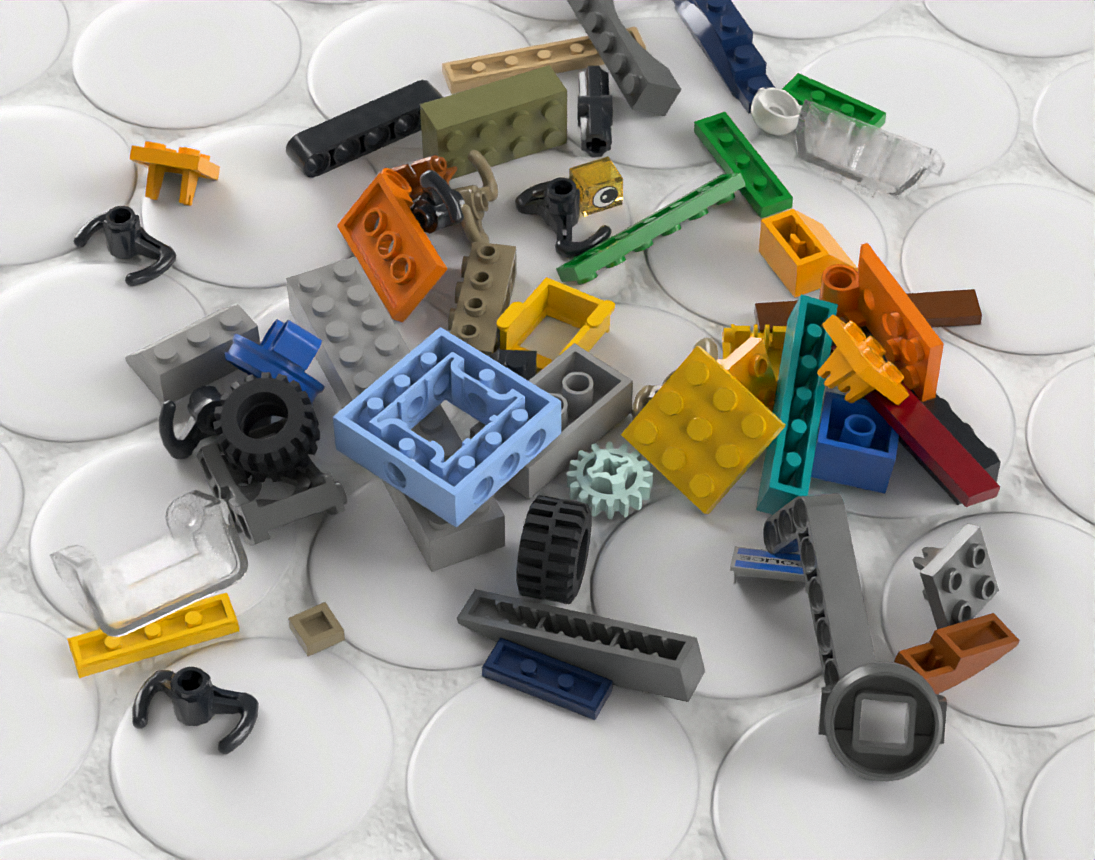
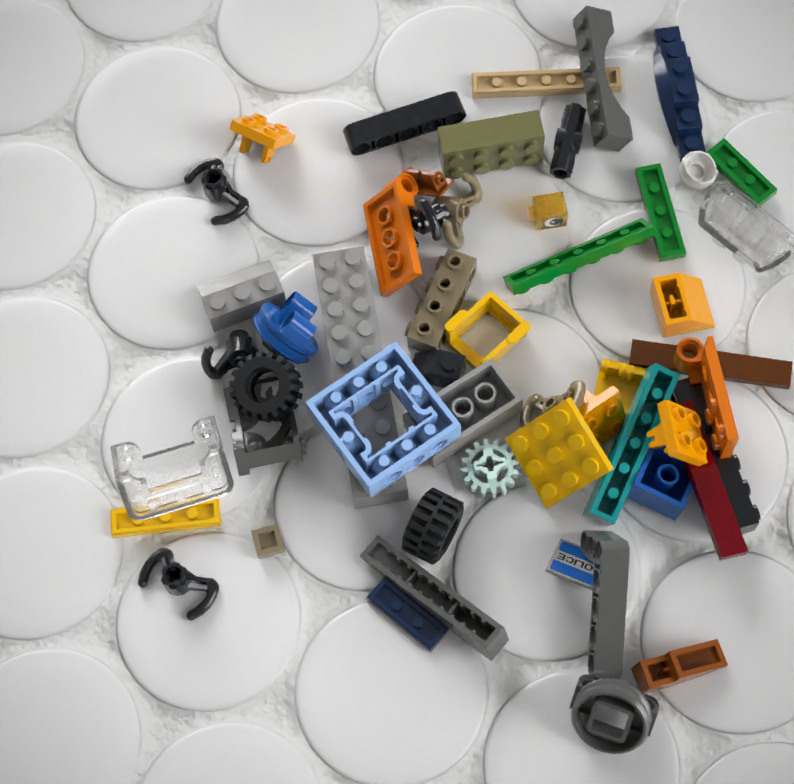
camera: 20 degrees right, 20 degrees up
(559, 206) = (519, 229): black piece -> none
(957, 577) = (697, 612): dark grey plate -> none

